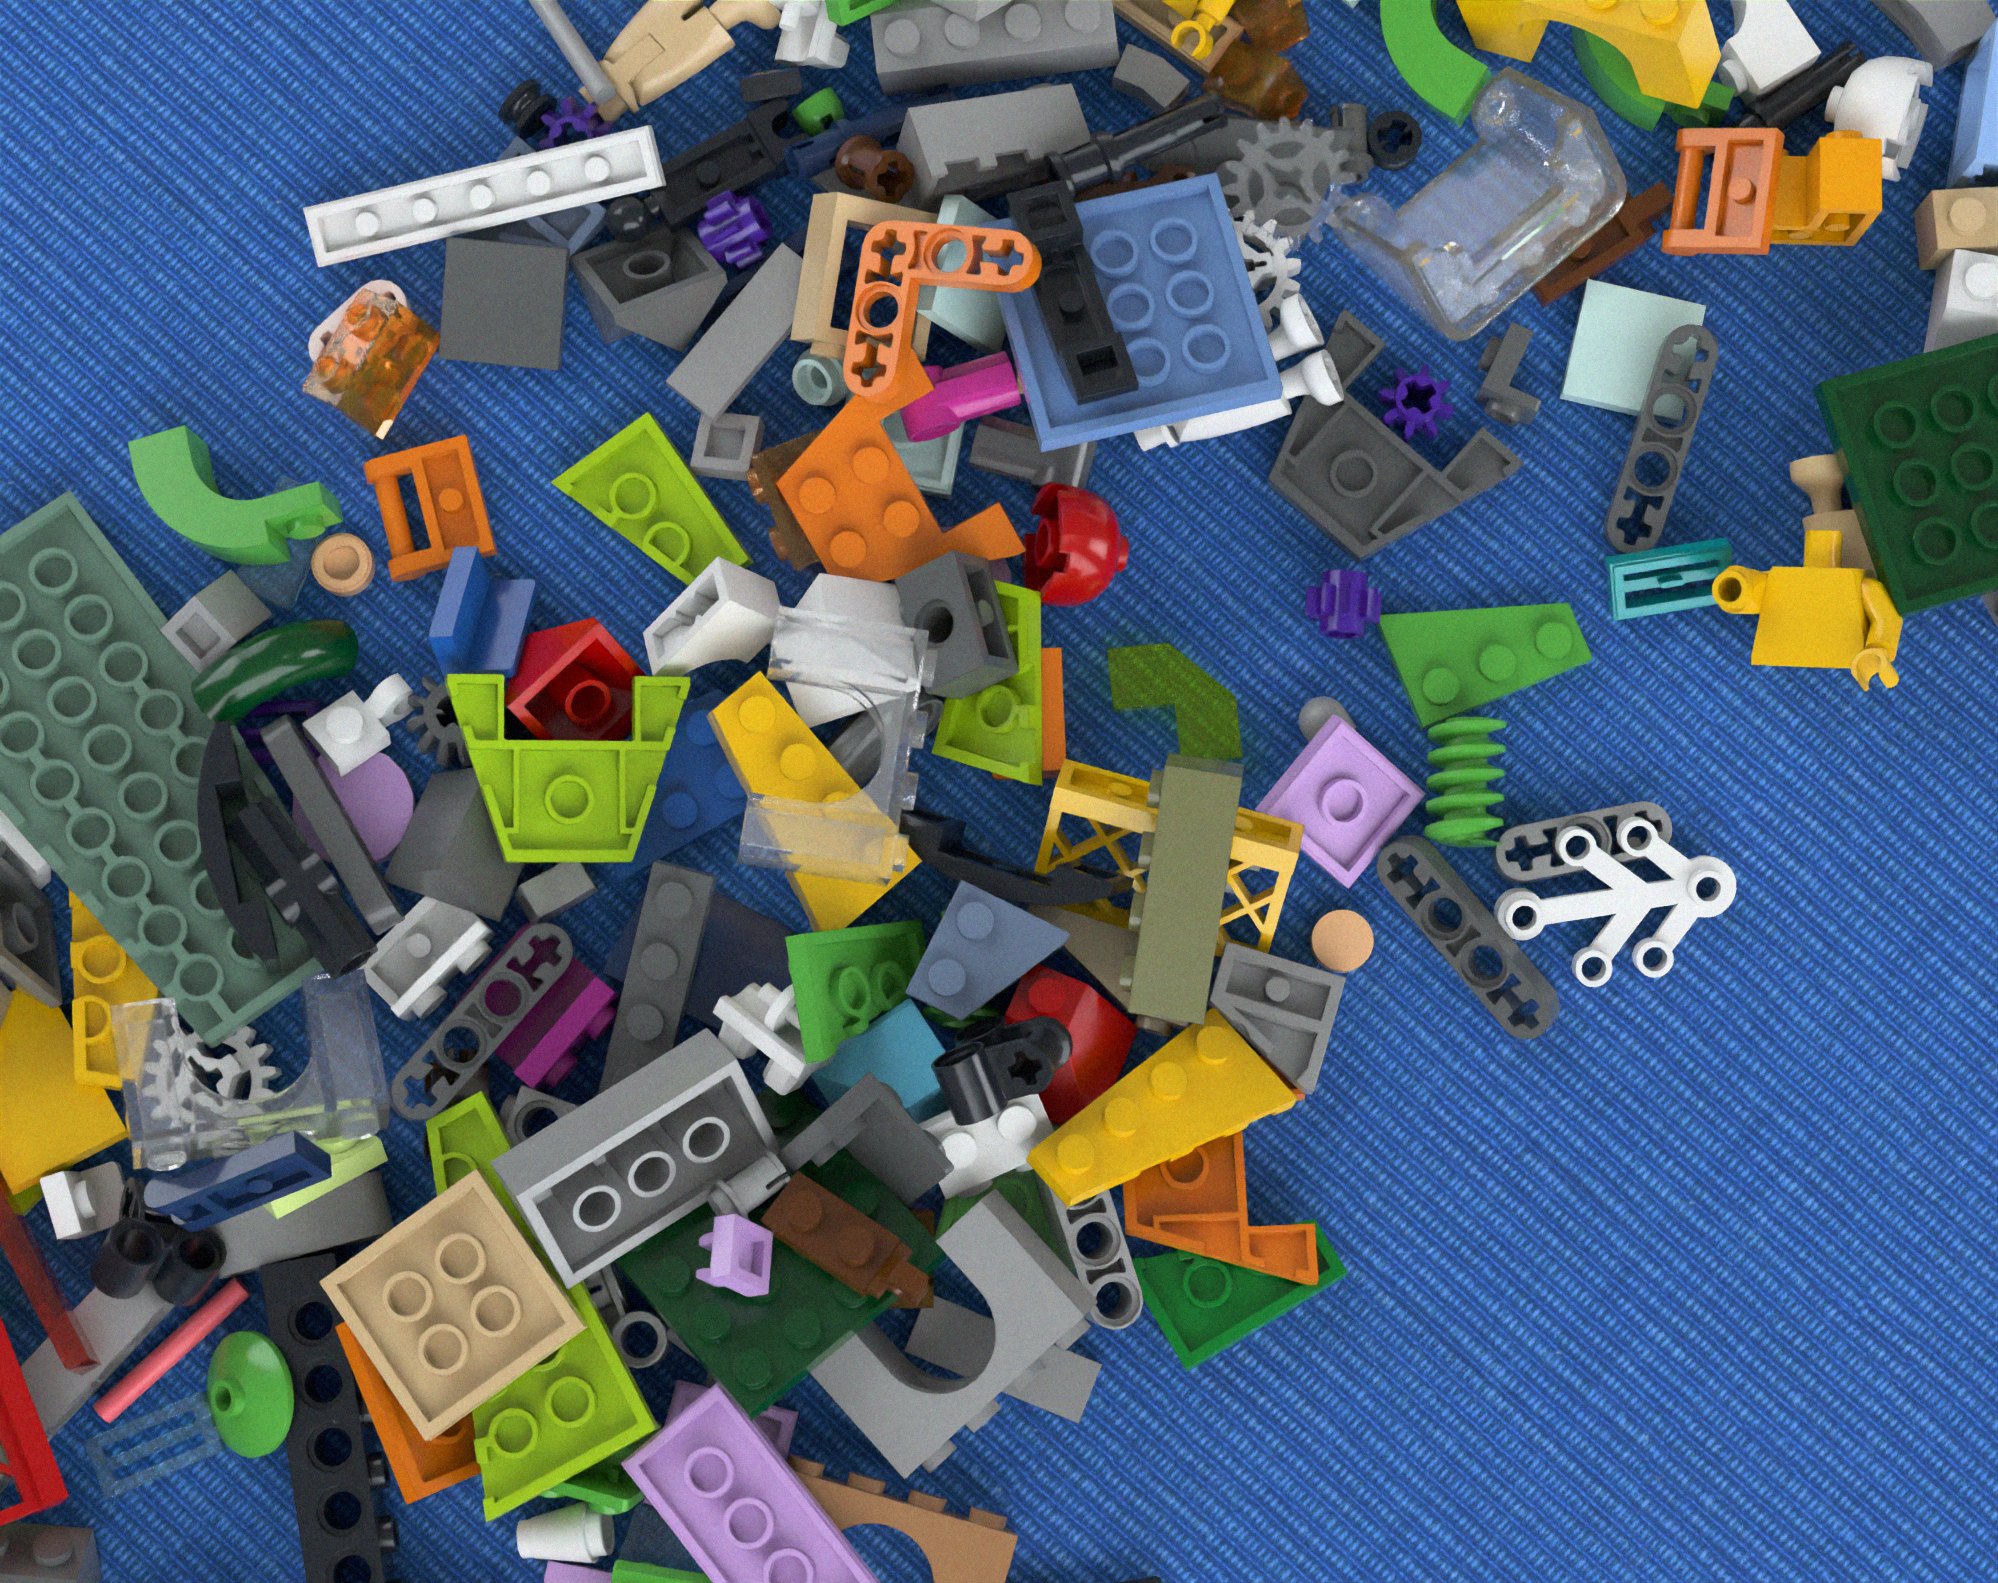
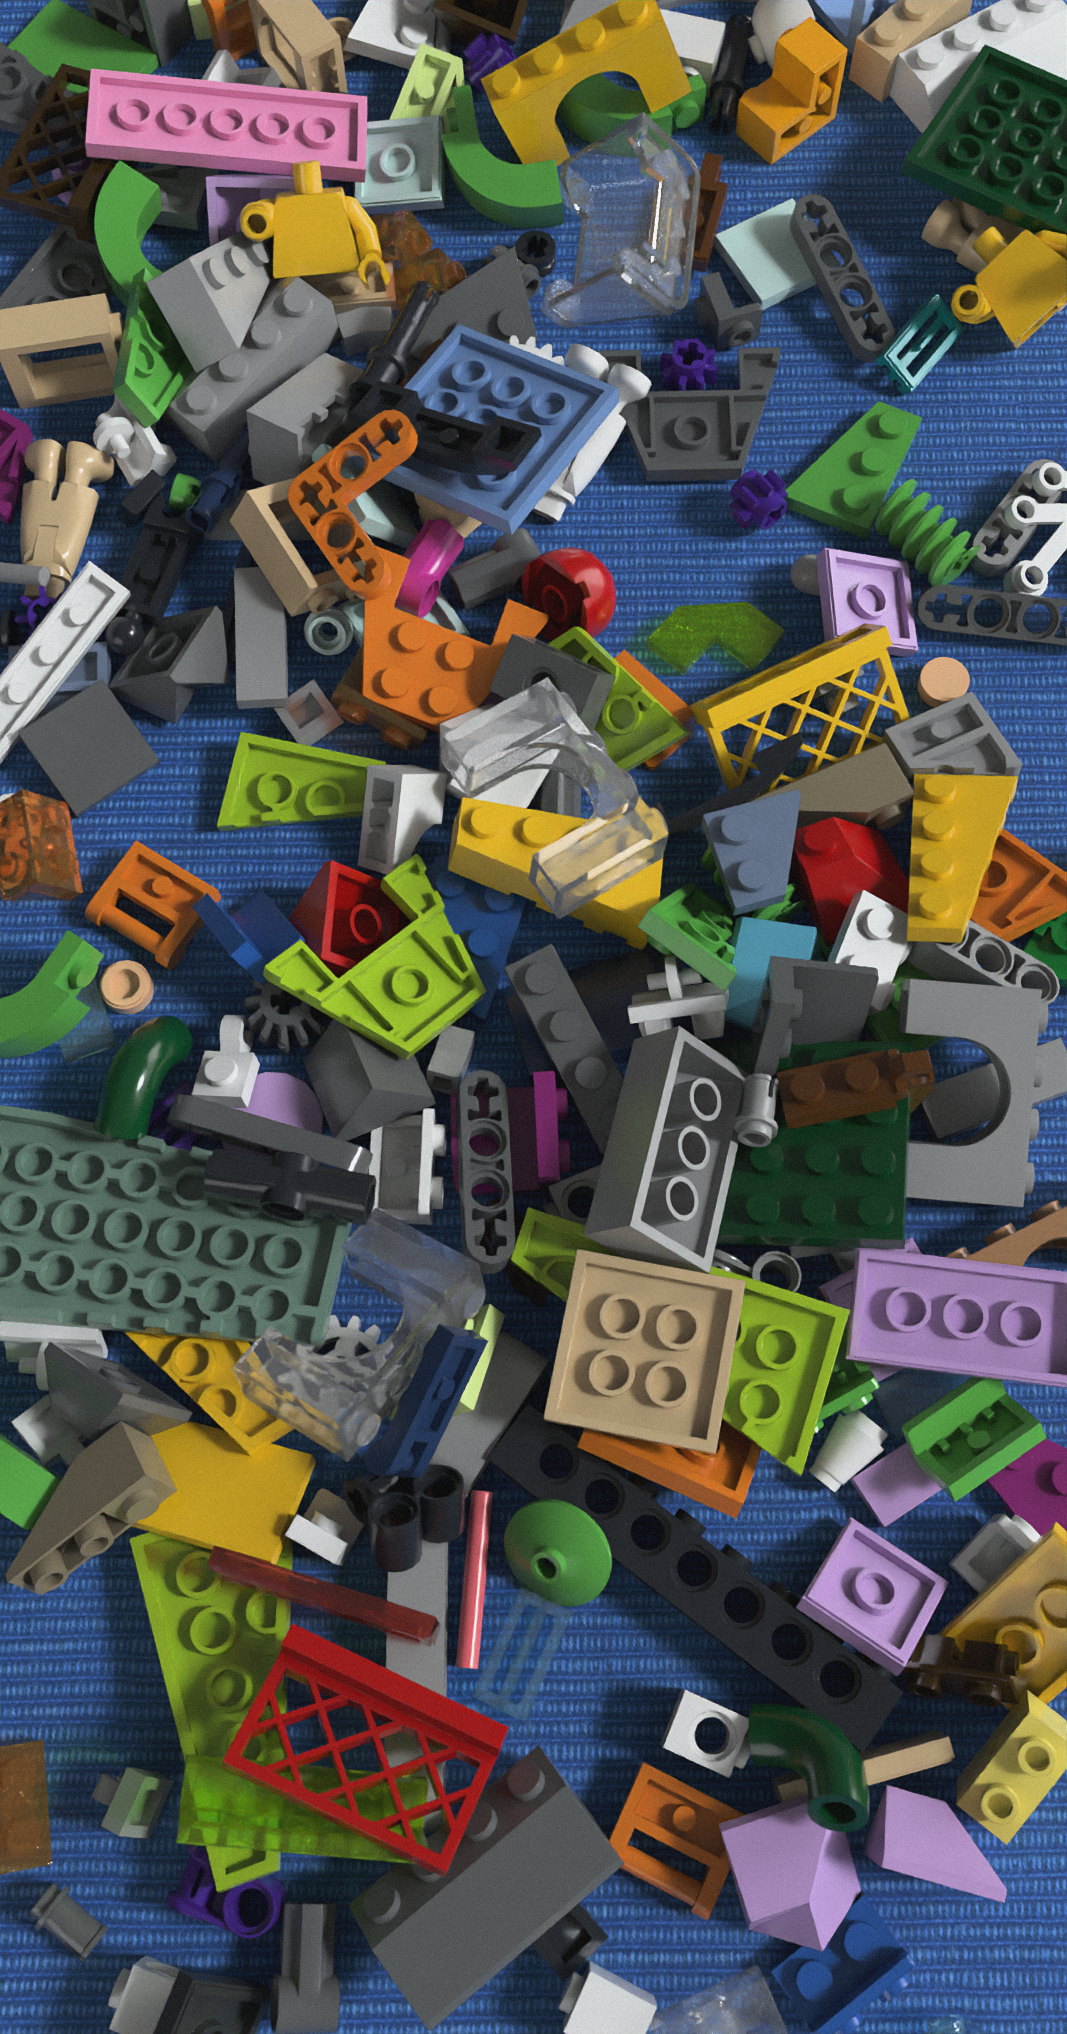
camera: 45 degrees left, 10 degrees down
(215, 620) = (74, 1084): light grey panel -> none
(220, 781) = (275, 1236): black slope -> none
(735, 229) = (196, 586): dark purple gear -> none
(738, 1255) = (799, 1148): lavender tile -> none
(870, 158) = (251, 476): reddish brown bush -> none
(1000, 1064) = (838, 894): black piece -> none
(1184, 887) = (844, 693): olive brick -> none
(1270, 205) = (525, 294): clear gear -> none
(1739, 194) = (758, 111): orange plate -> none

